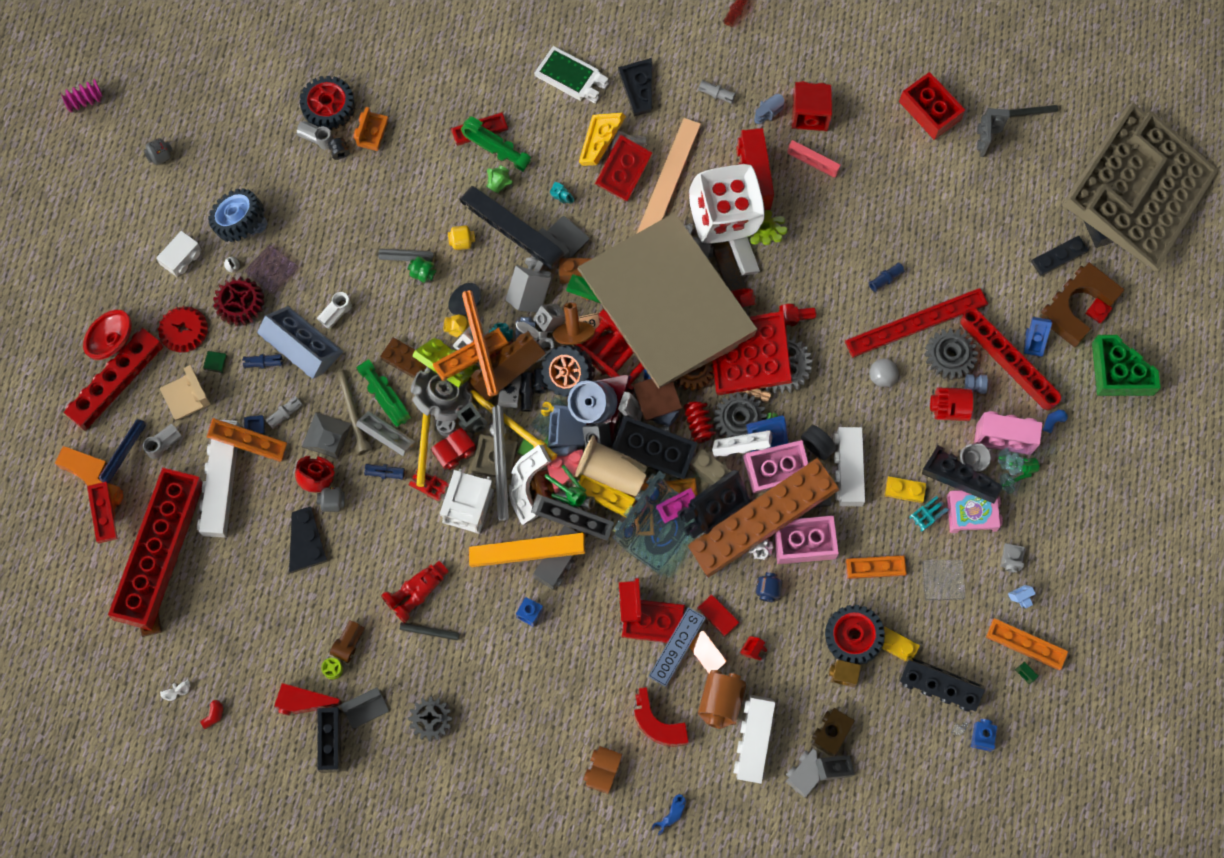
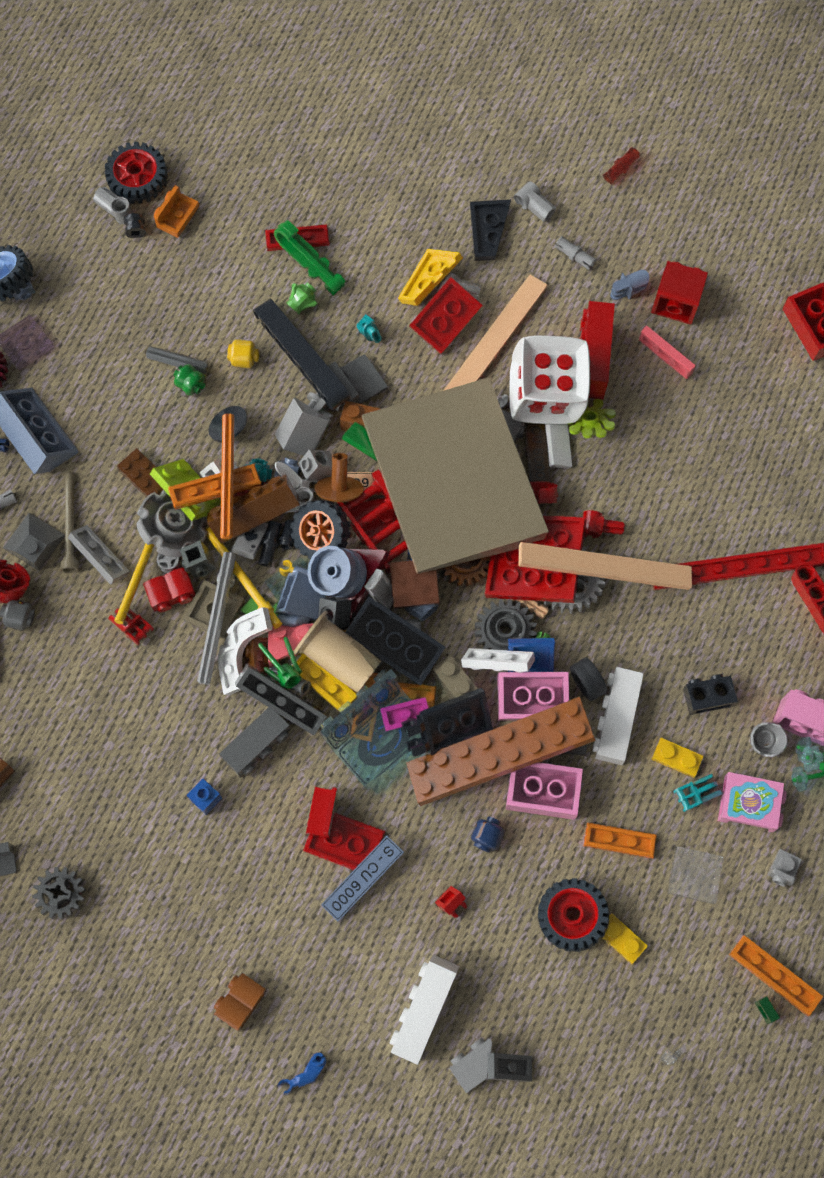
camera: 15 degrees right, 0 degrees up
(333, 312) = (79, 405): white piece -> none
(371, 470) = (99, 601): dark blue pin -> none
(383, 394) = (109, 510): green piece -> none
(418, 587) = (88, 740): red piece -> none
(429, 631) = (86, 791): pearl dark grey bar -> none
(456, 325) = (209, 450): yellow rock -> none
(466, 501) = (166, 653): white container -> none
(527, 550) = (220, 724): light orange tile -> none
(571, 75) = (415, 199): tile -> none
(661, 733) = (319, 976): red arch -> none
(669, 54) = (530, 197): none -> light grey piece
(698, 421) = (455, 622): red piece -> none
(707, 652) = (396, 894): slope -> none
(718, 615) = (420, 852): red tile -> none
(721, 699) = (397, 953): dark orange cylinder -> none
(762, 550) = (491, 788): white gear -> none
(809, 347) = (604, 566): none -> light nougat tile
(841, 723) = (532, 1018): dark brown brick -> none
(844, 673) = (550, 957): pearl gold brick -> none
(884, 373) = (686, 616): light grey hair -> none
(886, 277) = (717, 505): dark blue pin -> none
(921, 436) = (712, 700): none -> black brick
(941, 683) = (661, 998): black brick -> none
(952, 404) = (756, 670): red gear -> none
(952, 472) = (741, 754): black wing -> none
(953, 342) = (777, 599): dark grey gear -> none
(976, 384) = (794, 653): sand blue wheel -> none
(981, 742) = (691, 1079): blue brick -> none
(1022, 595) = (784, 915): light blue tile -> none

